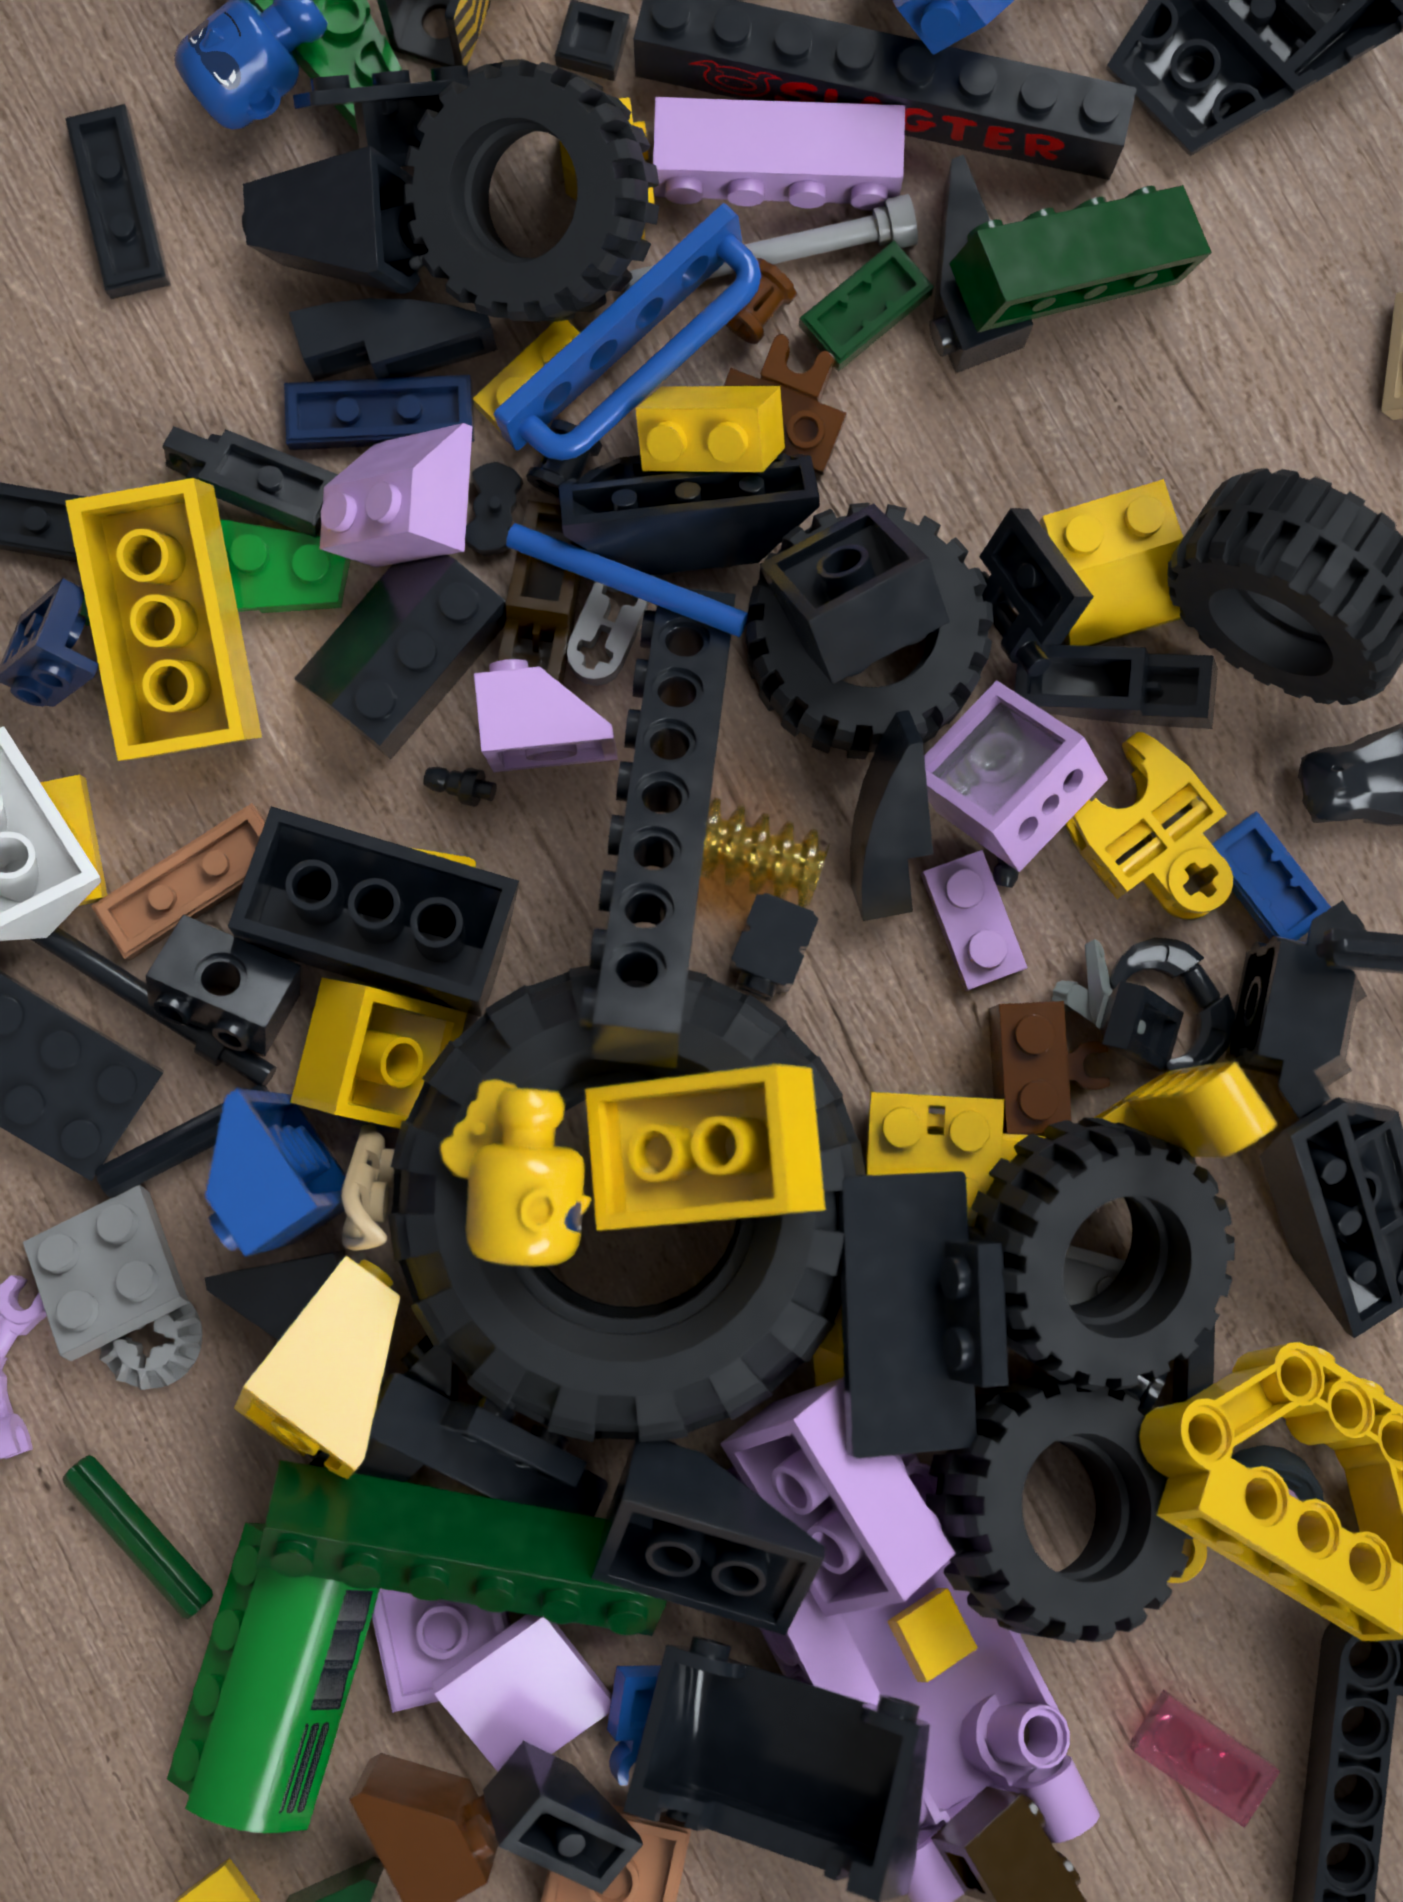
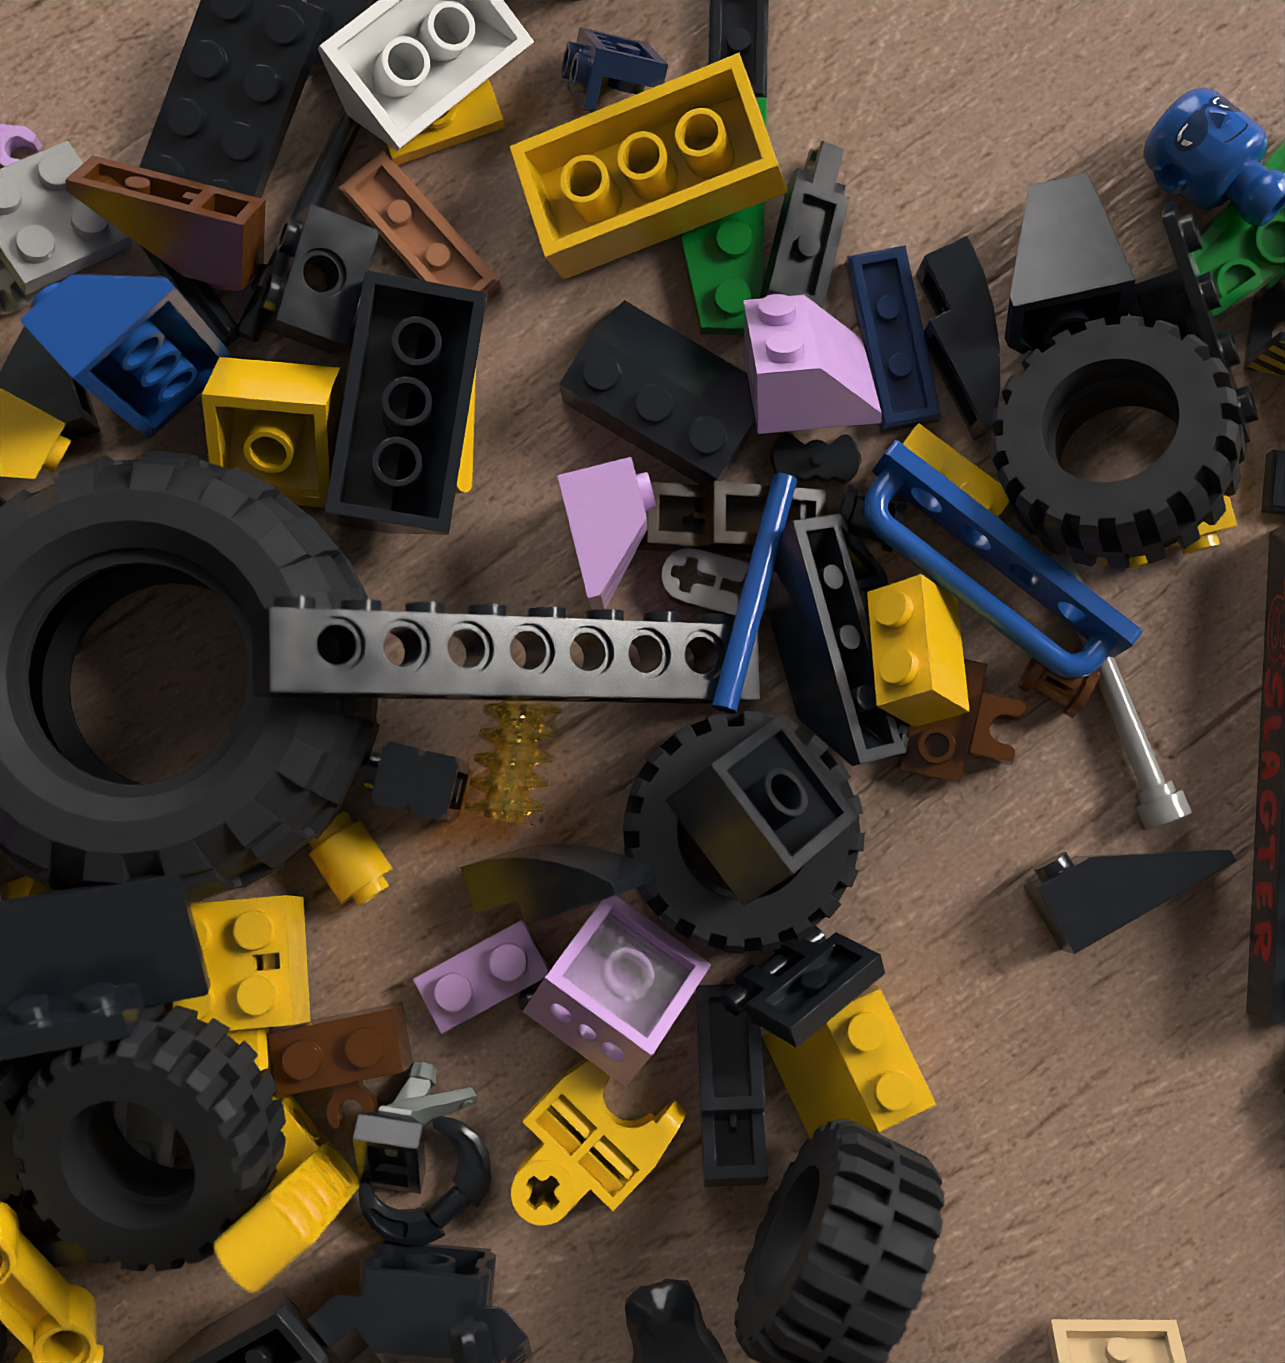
camera: 85 degrees right, 0 degrees up
(118, 201) = (1058, 64): black tile -> none
(139, 1120) = (184, 223): none -> reddish brown slope
(367, 1191) = (133, 433): tan piece -> none
(466, 785) = (543, 476): black piece -> none
(478, 1129) = (195, 532): yellow piece -> none
(526, 1190) = (115, 570): yellow piece -> none
(705, 1147) = (175, 738): yellow slope -> none
(778, 152) = (1211, 678): lavender brick -> none
(843, 1033) = (350, 860): none -> yellow brick
(866, 305) = (1073, 787): dark green plate -> none
(1078, 256) = (1150, 989): dark green brick -> none
(1269, 880) = (558, 1263): blue plate -> none

